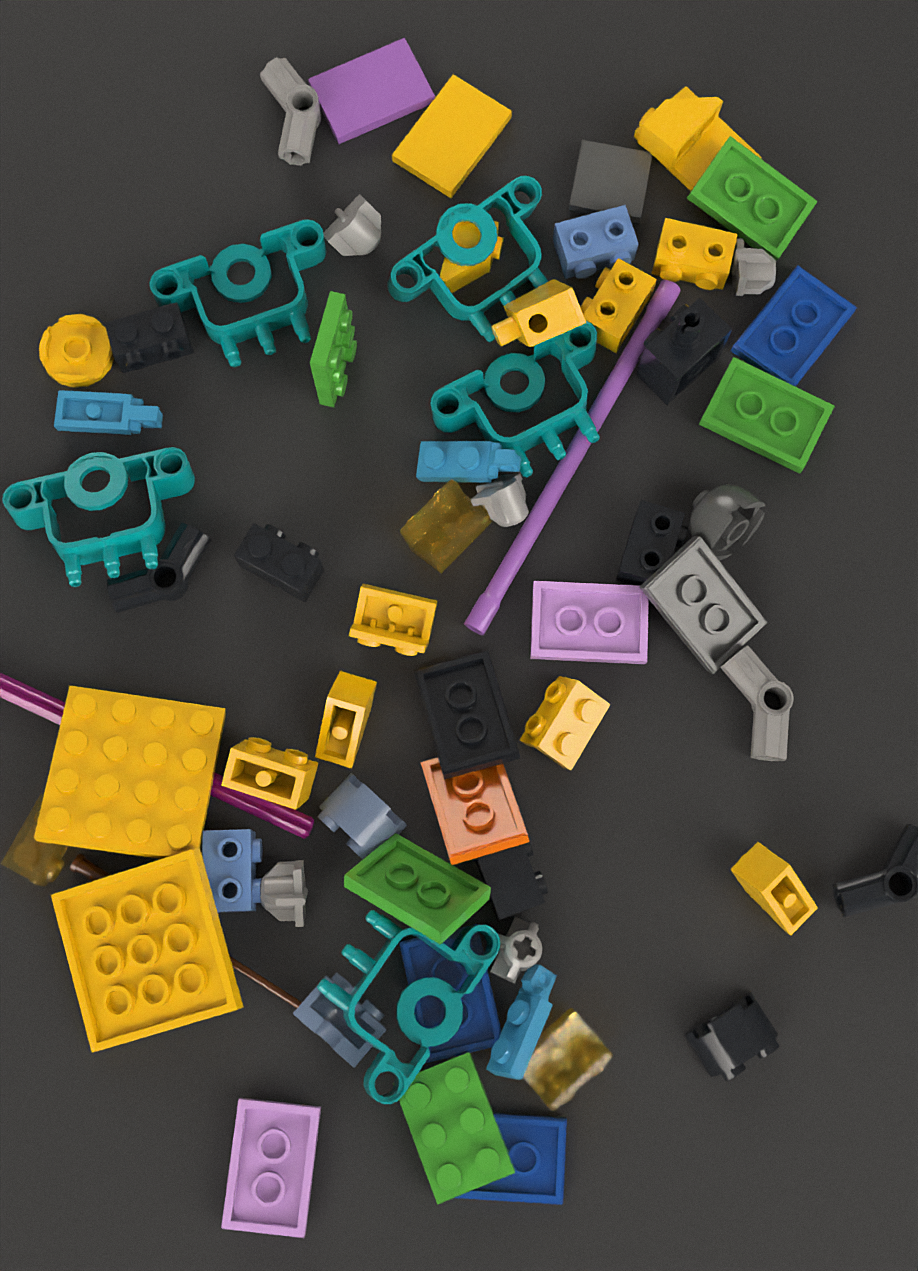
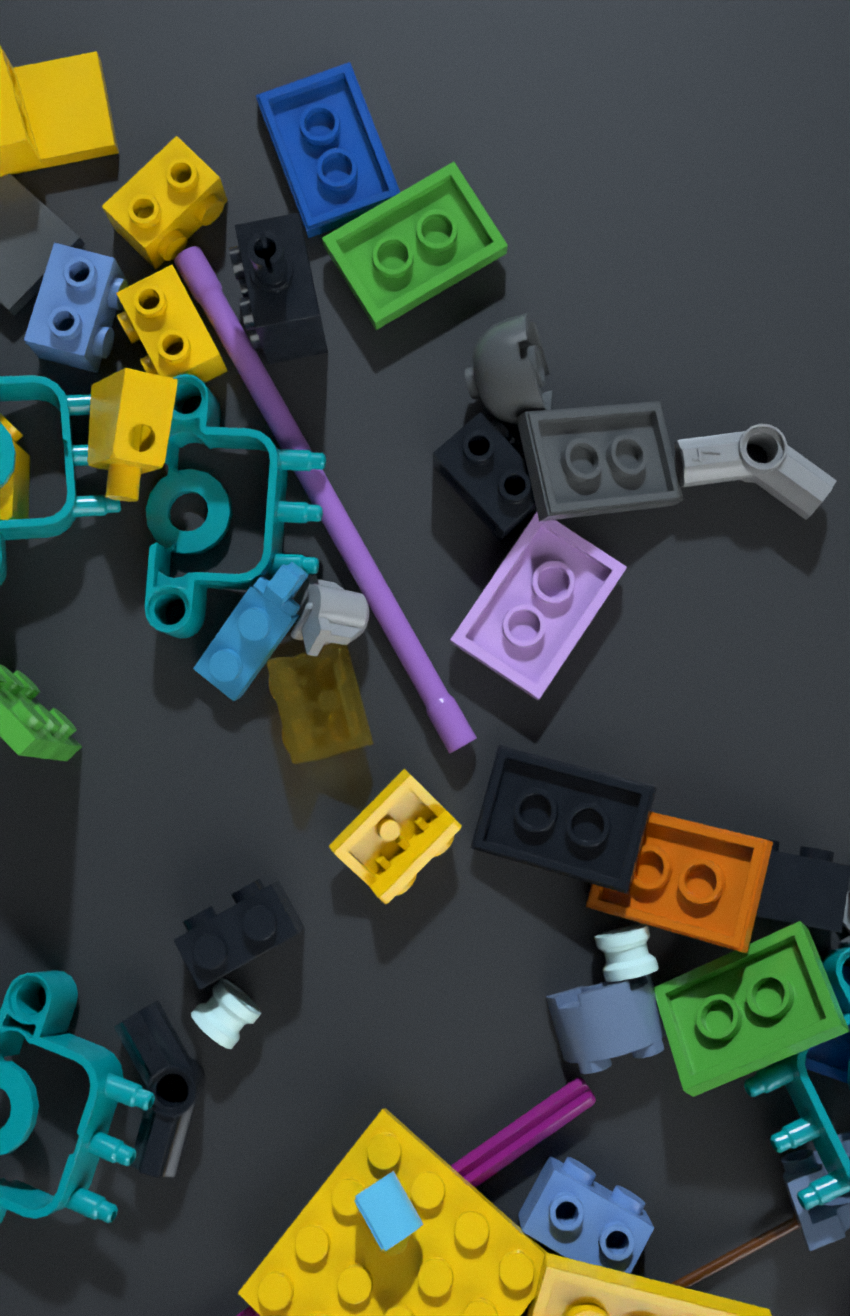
camera: 55 degrees left, 5 degrees up
(170, 737) = (388, 1211): none -> medium azure brick
(227, 583) = (225, 1013): none -> light aqua wheel
(270, 773) = (497, 1103): yellow brick -> none
(285, 892) = (649, 1165): light grey piece -> none
(345, 719) = (481, 966): yellow slope -> none
(407, 801) = (626, 953): none -> light aqua wheel
(565, 721) = (638, 707): yellow bracket -> none
(751, 199) = (141, 93): bright green plate -> none
(752, 270) = (230, 149): light grey piece -> none

